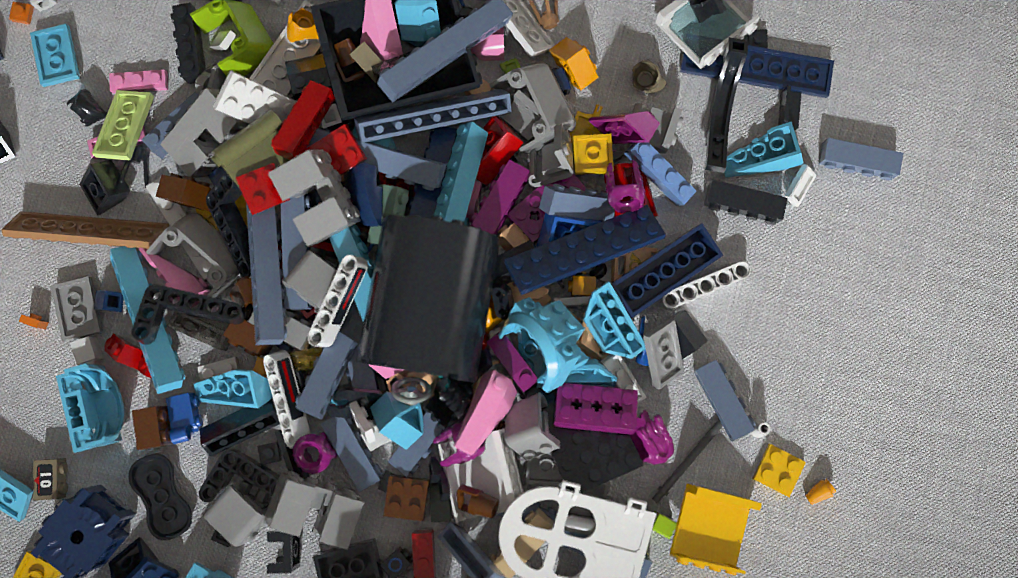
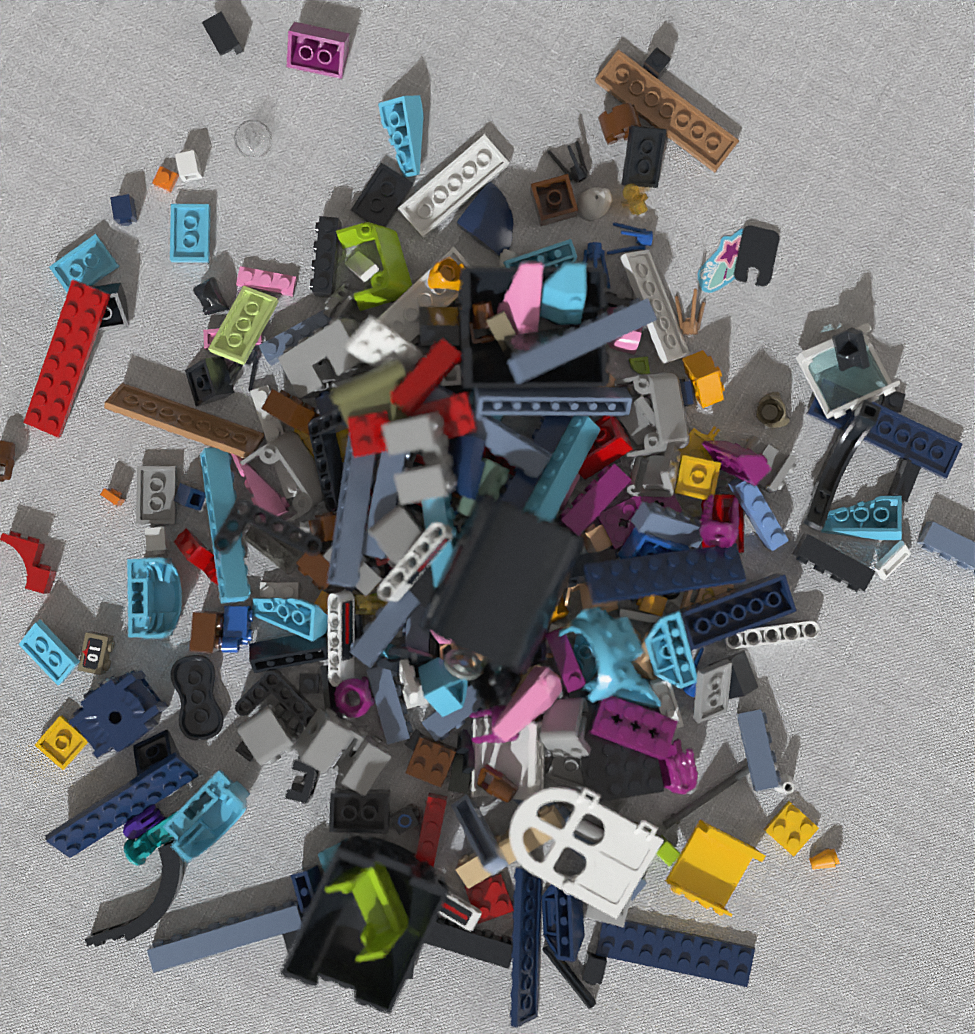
camera: 15 degrees right, 5 degrees up
(502, 301) = (569, 599): black beam -> none

